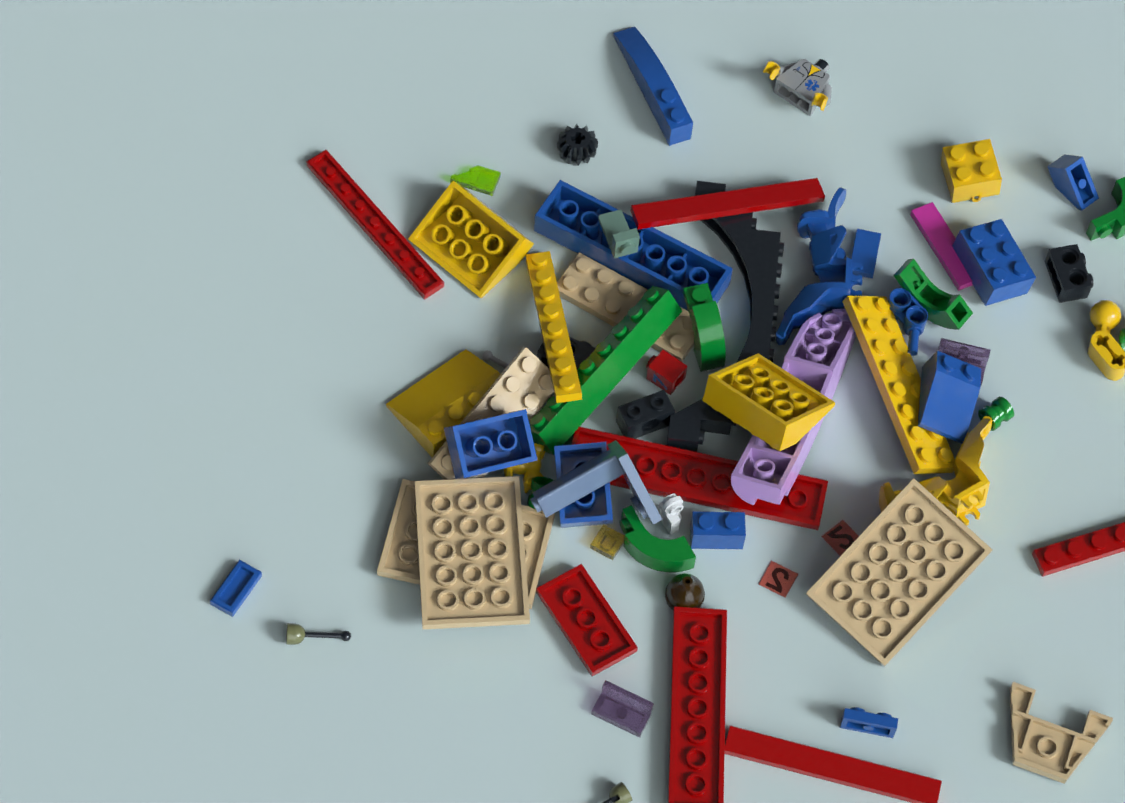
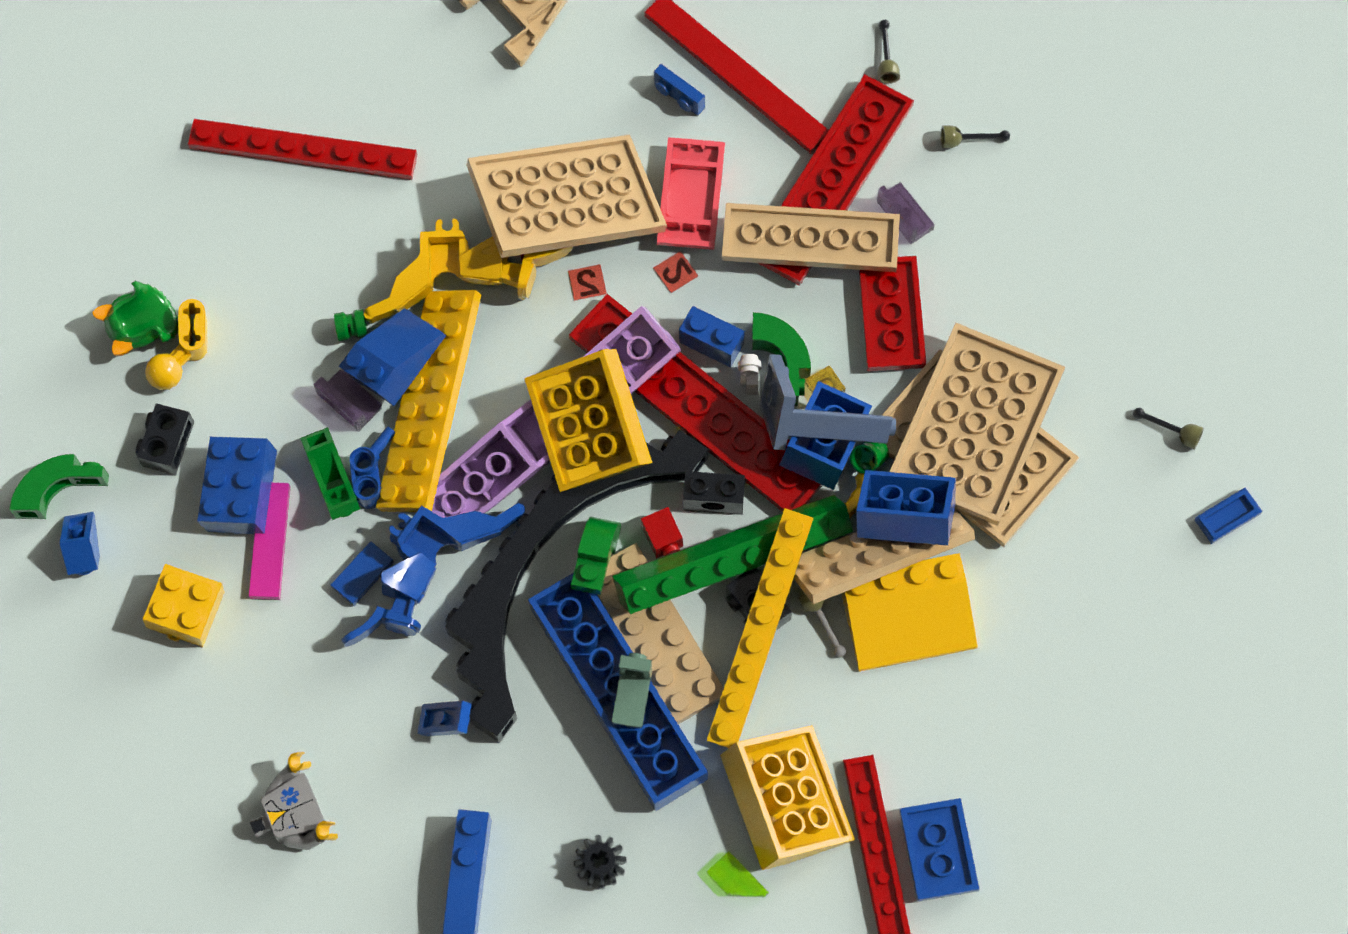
camera: 145 degrees left, 10 degrees up
(343, 254) = (939, 849): none -> blue plate
(684, 591) = (778, 296): dark brown helmet -> none
(685, 638) = (810, 237): none -> tan plate
(727, 203) = (484, 683): red tile -> none
(738, 176) = (444, 718): none -> blue plate
(803, 639) = (691, 193): none -> coral slope

